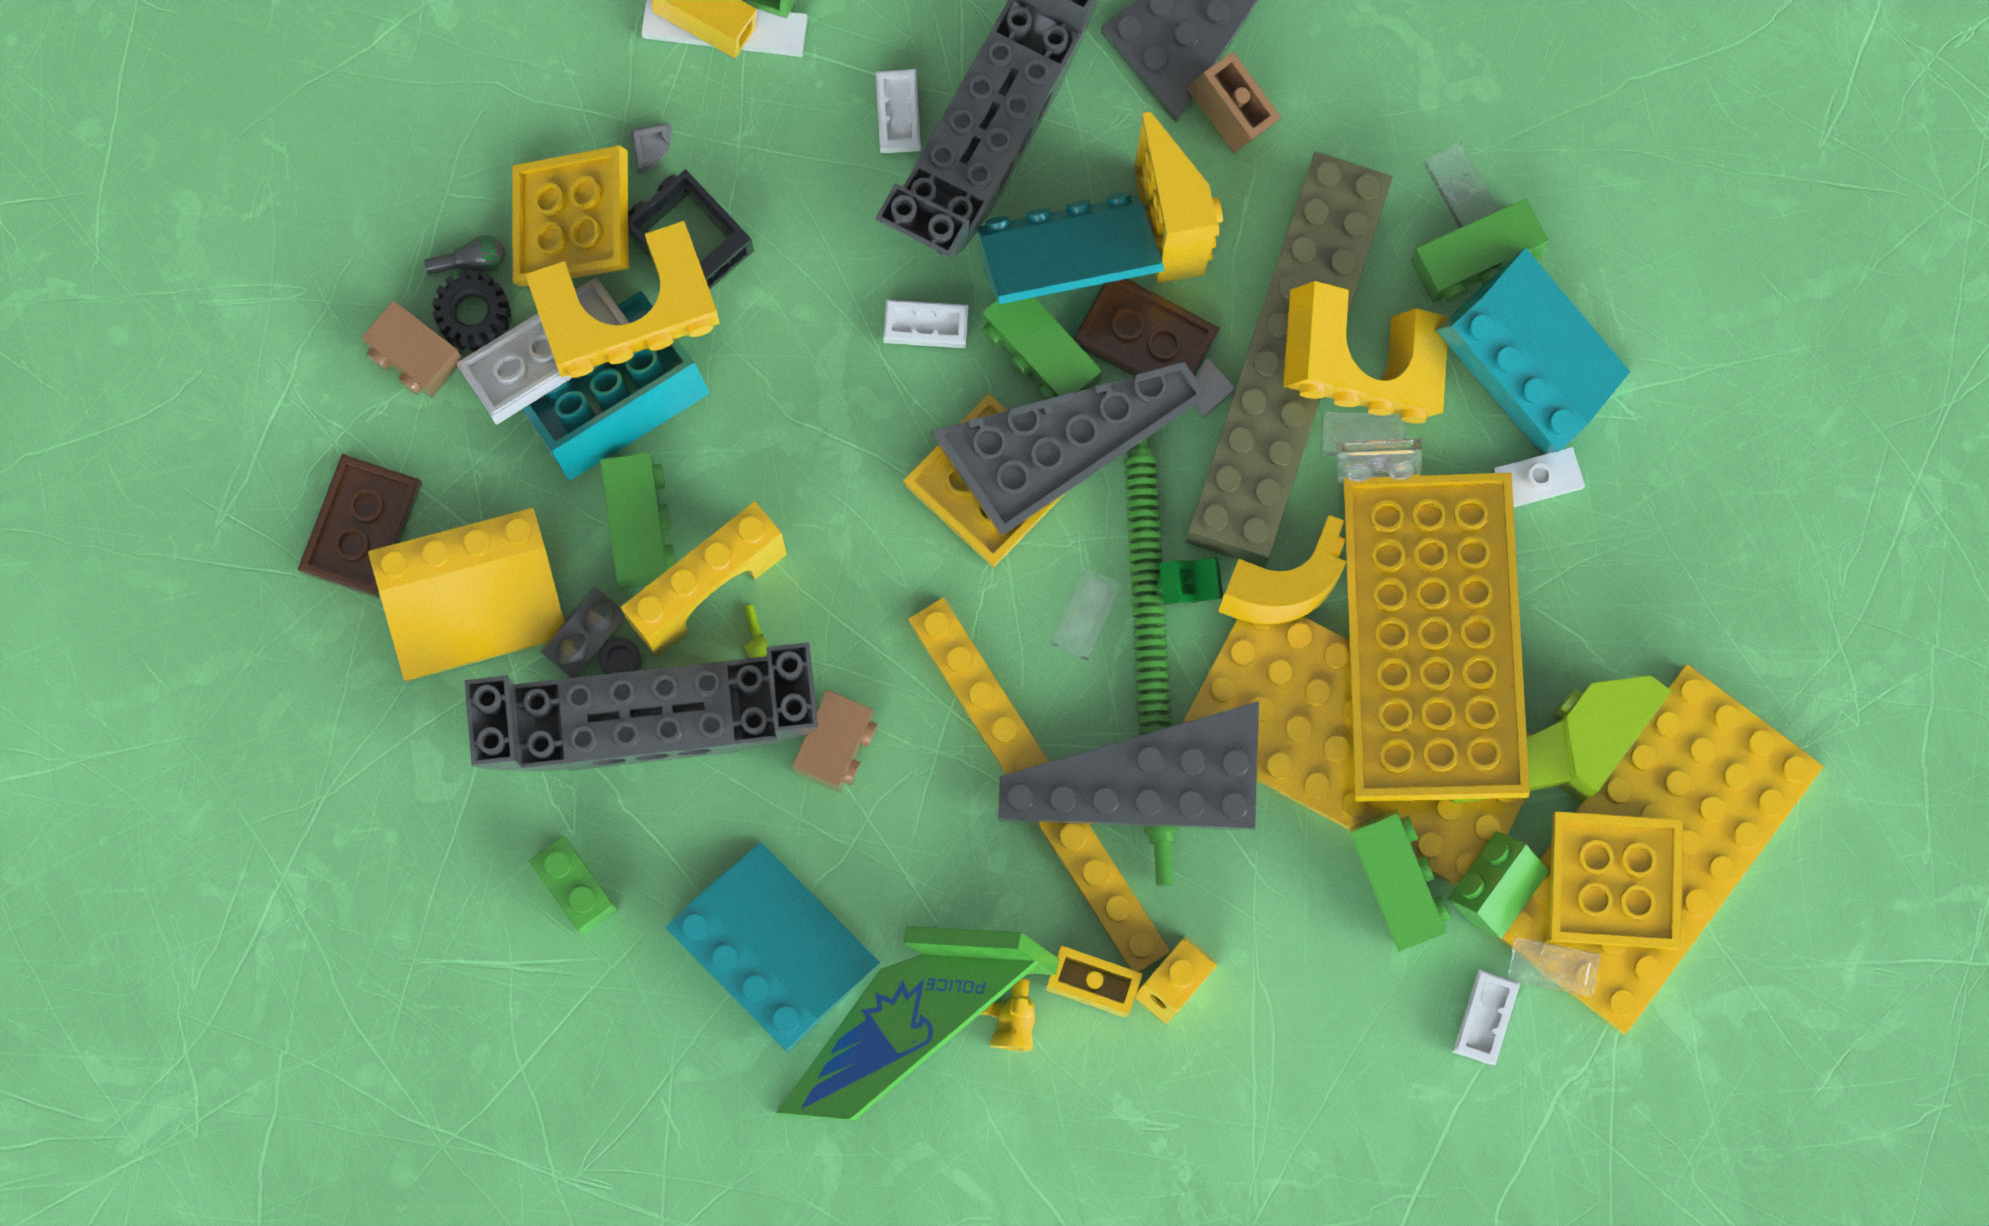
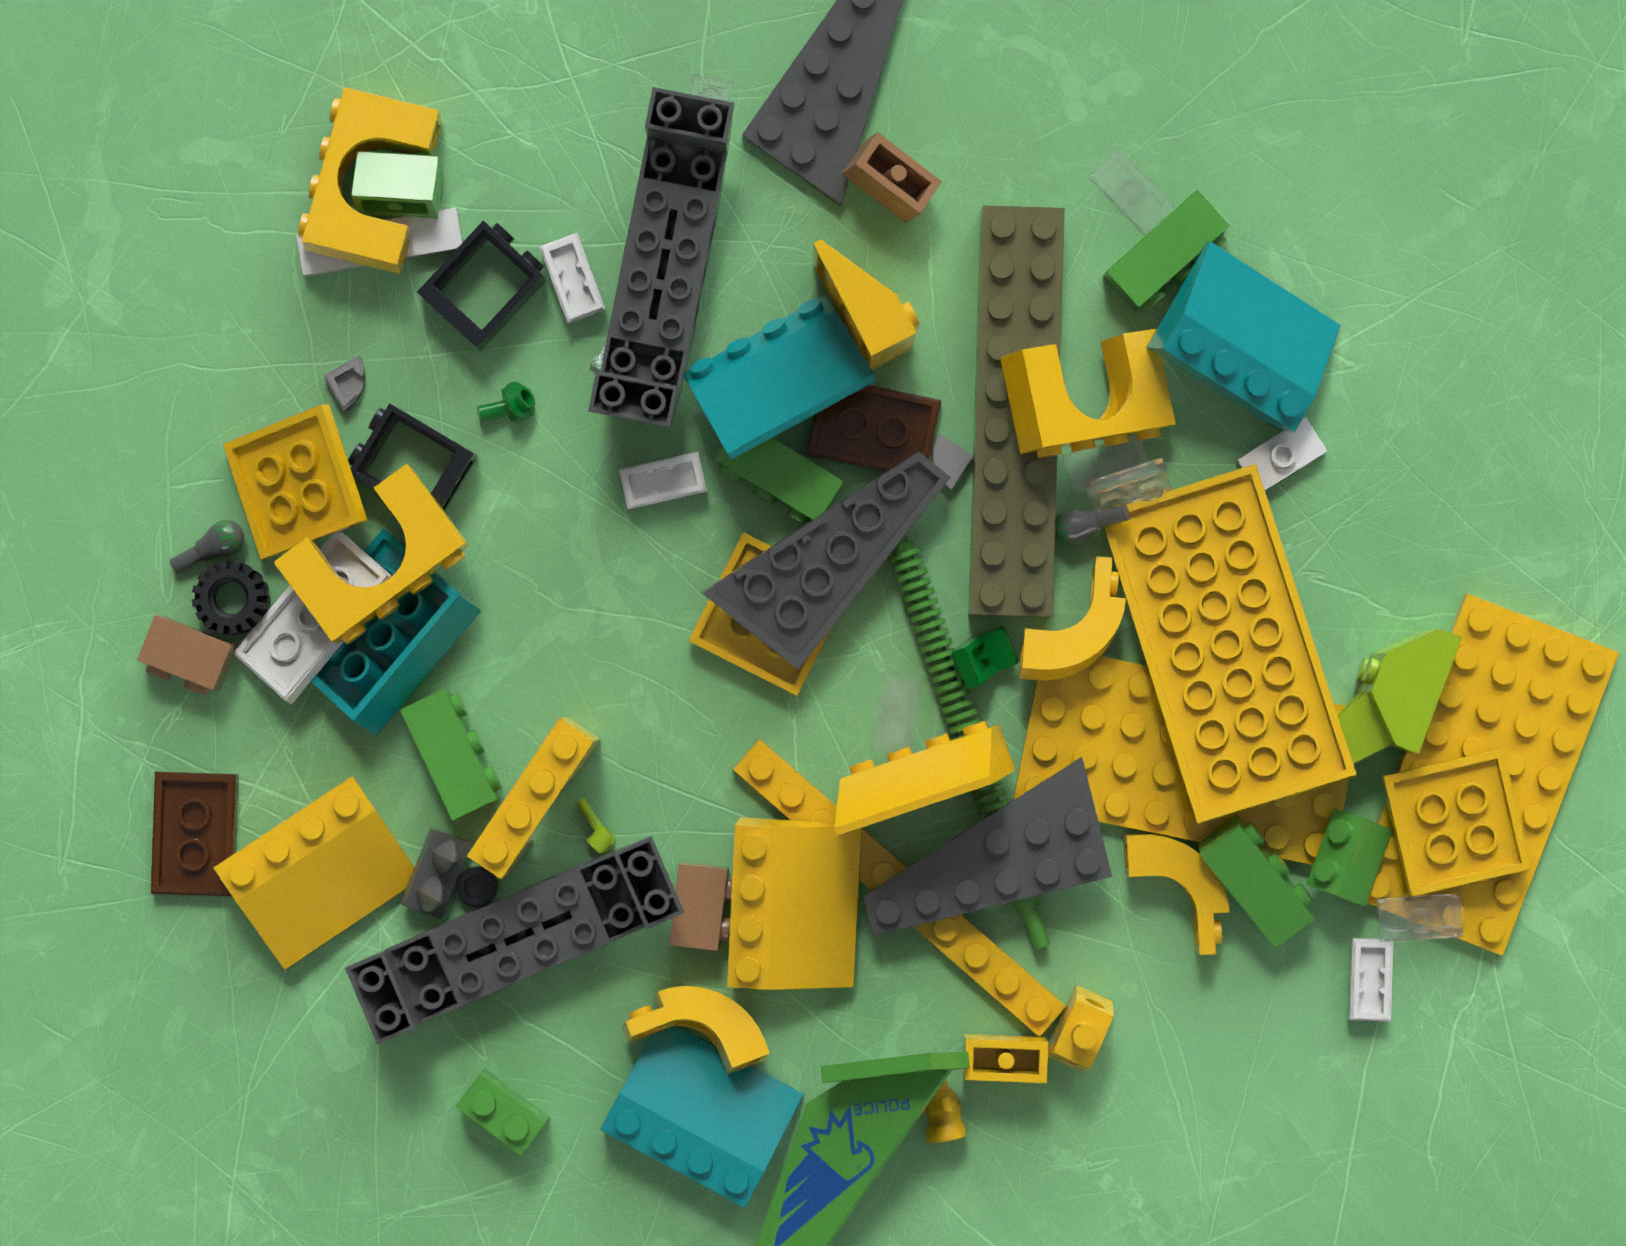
camera: 15 degrees left, 10 degrees up
(796, 59) = (501, 240): none -> black window
(807, 211) = (516, 404): none -> green plate
(809, 848) = (709, 1012): none -> yellow arch
(928, 765) = (793, 905): none -> yellow slope
(1095, 675) = (921, 777): none -> yellow slope
(1318, 484) = (1078, 525): none -> dark grey piece
(1331, 847) = (1172, 859): none -> yellow arch

